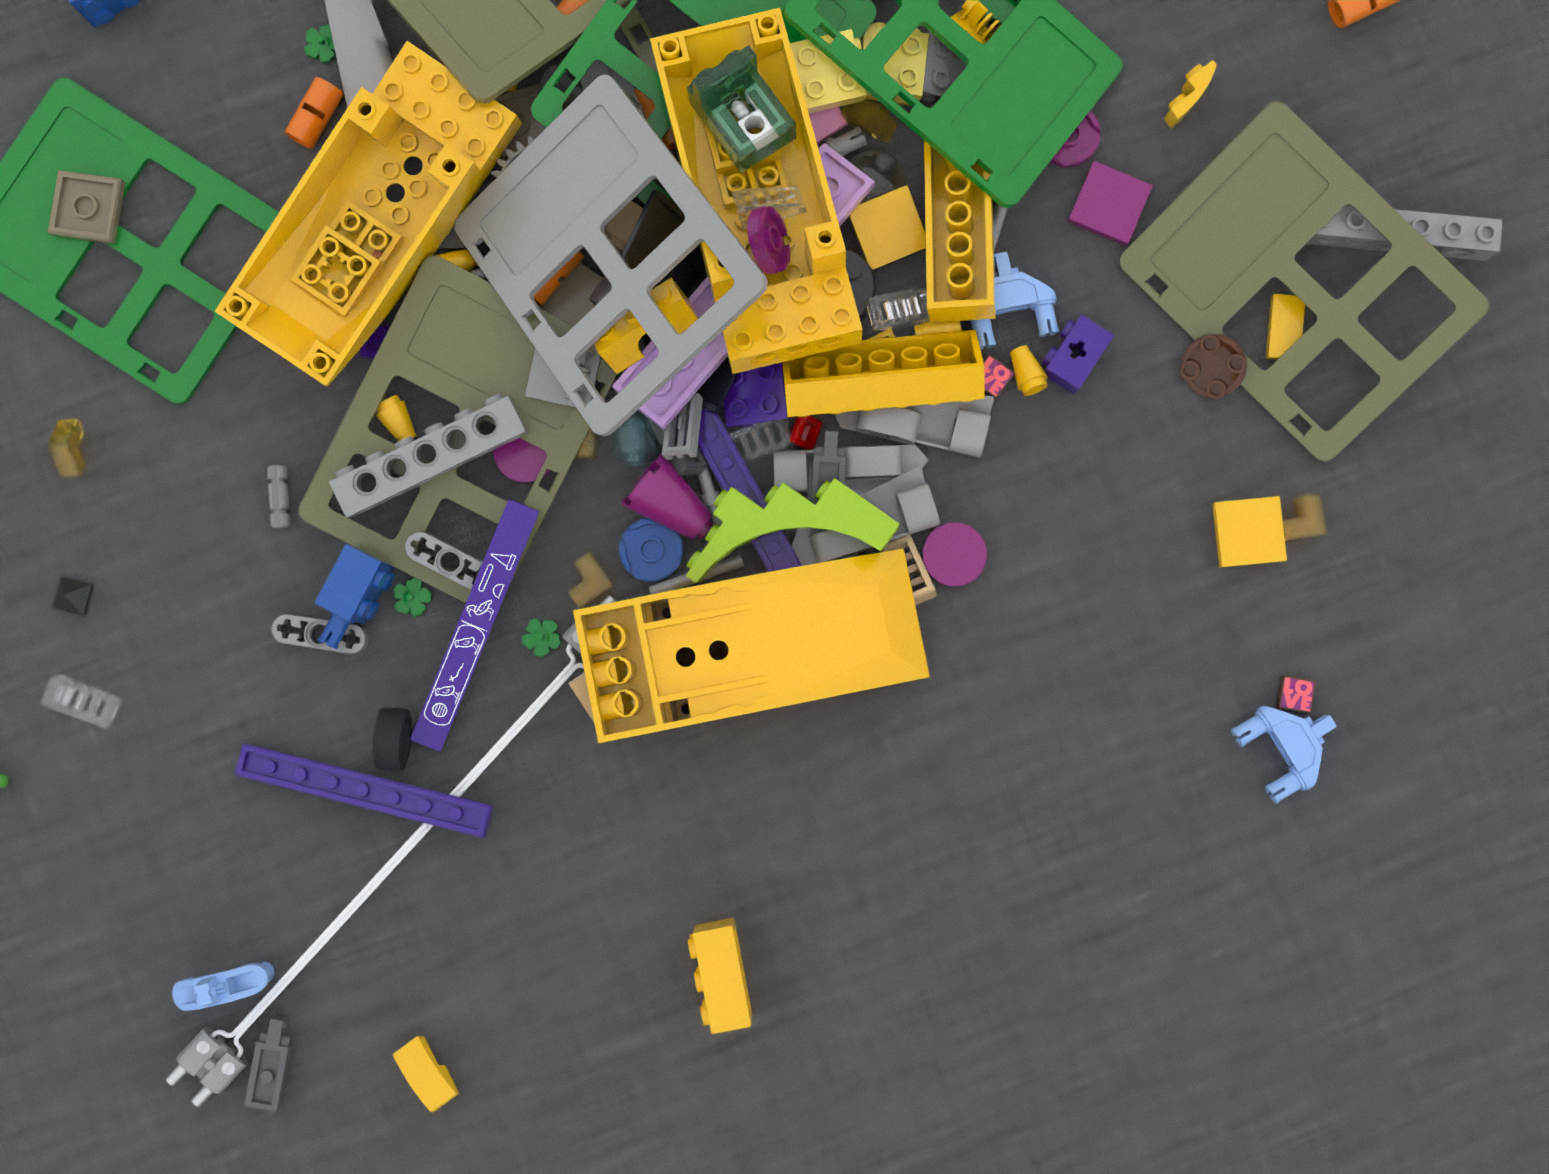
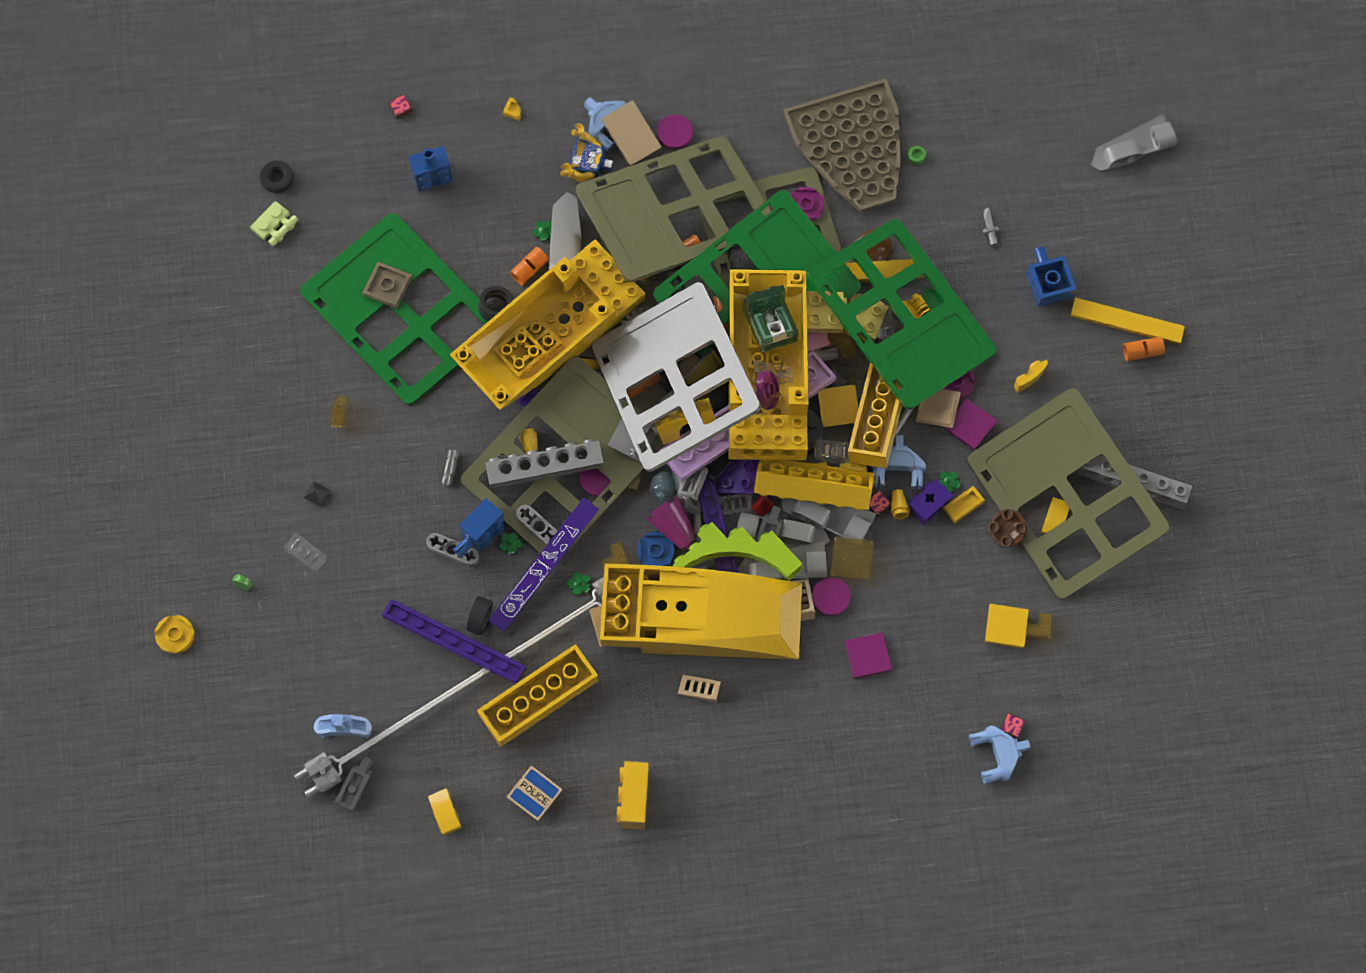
camera: 10 degrees right, 15 degrees down
(258, 179) = (493, 291): none -> black tyre
(522, 848) = (538, 695): none -> yellow brick
(561, 1007) = (534, 793): none -> piece
(807, 773) = (701, 681): none -> tan slope
(973, 482) = (852, 558): none -> clear yellow tile
(1037, 637) = (868, 655): none -> magenta tile
(1056, 191) = (939, 409): none -> tan piece
(1097, 309) = (949, 481): none -> green plant
(1131, 343) = (963, 504): none -> yellow tile

